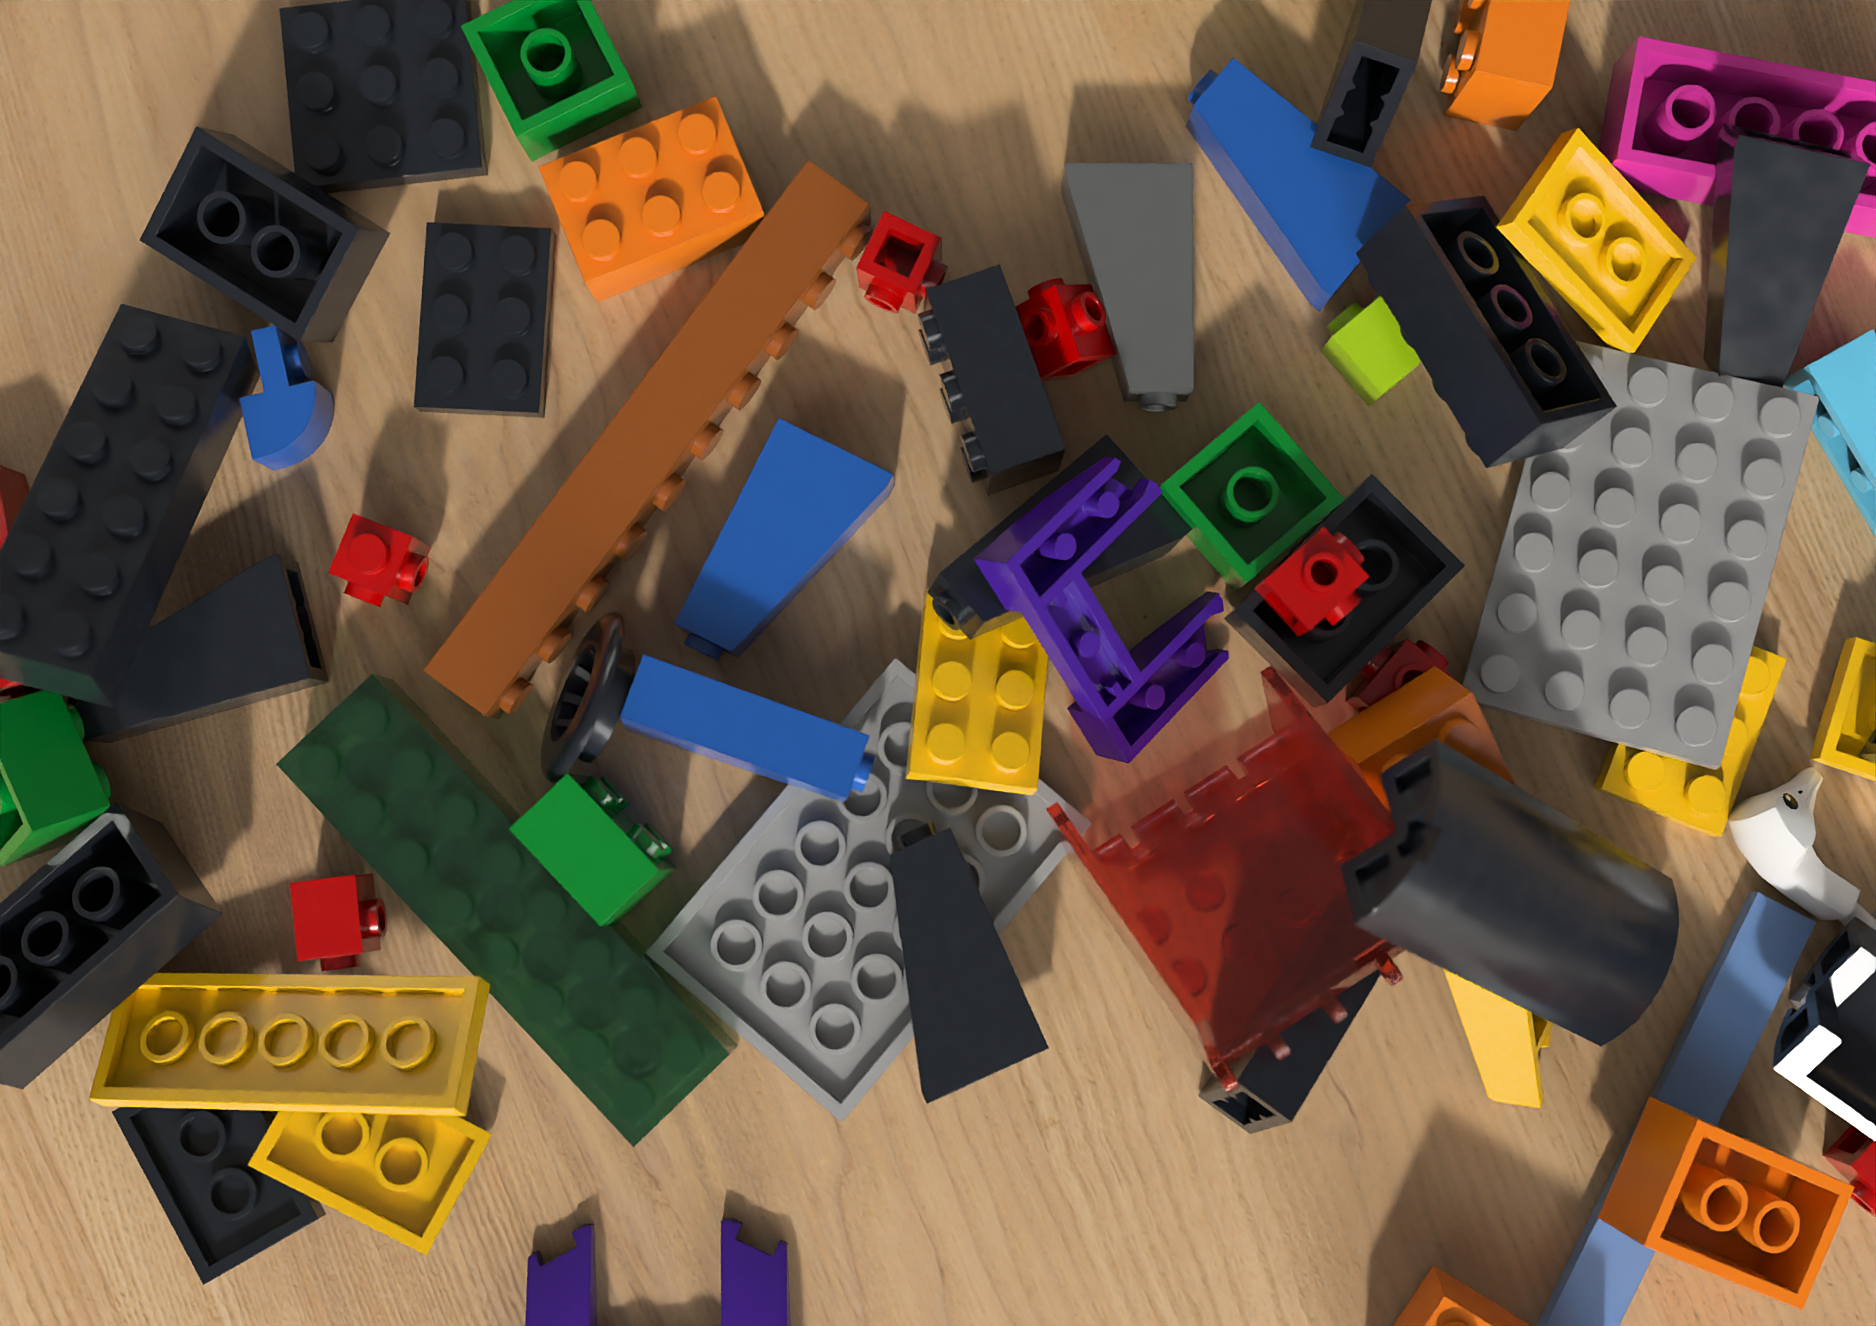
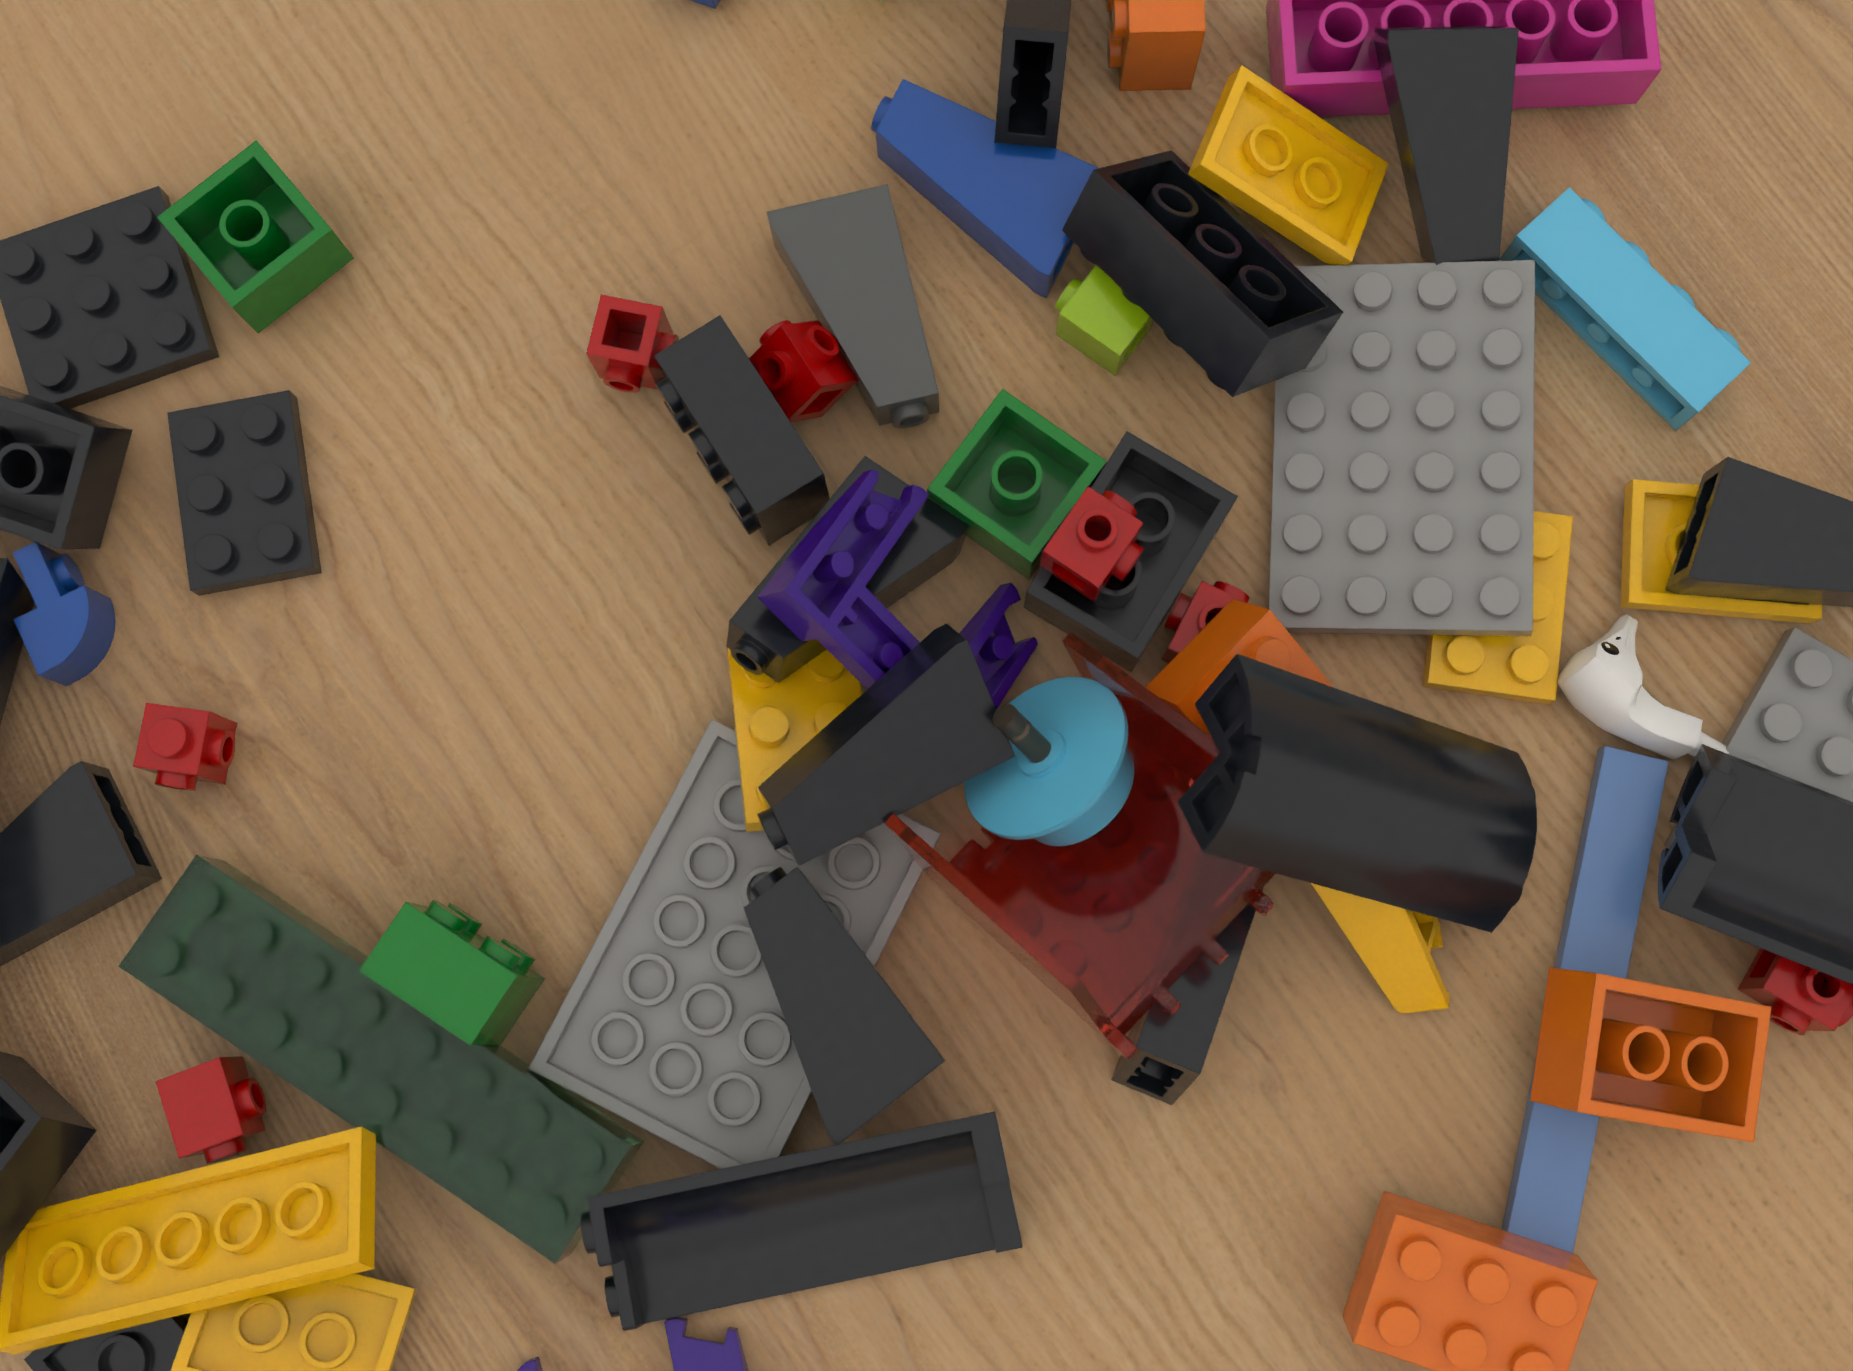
camera: 10 degrees left, 5 degrees down
(588, 698) = (416, 827): black wheel -> none
(652, 443) = (426, 575): dark orange brick -> none
(653, 199) = (381, 339): orange brick -> none
(745, 730) = (574, 821): blue slope -> none
(781, 532) = (571, 630): blue slope -> none
(879, 1163) = (803, 1220): none -> black cylinder
(1065, 739) = (887, 751): none -> black slope
(1218, 785) = (1066, 767): none -> medium azure piece

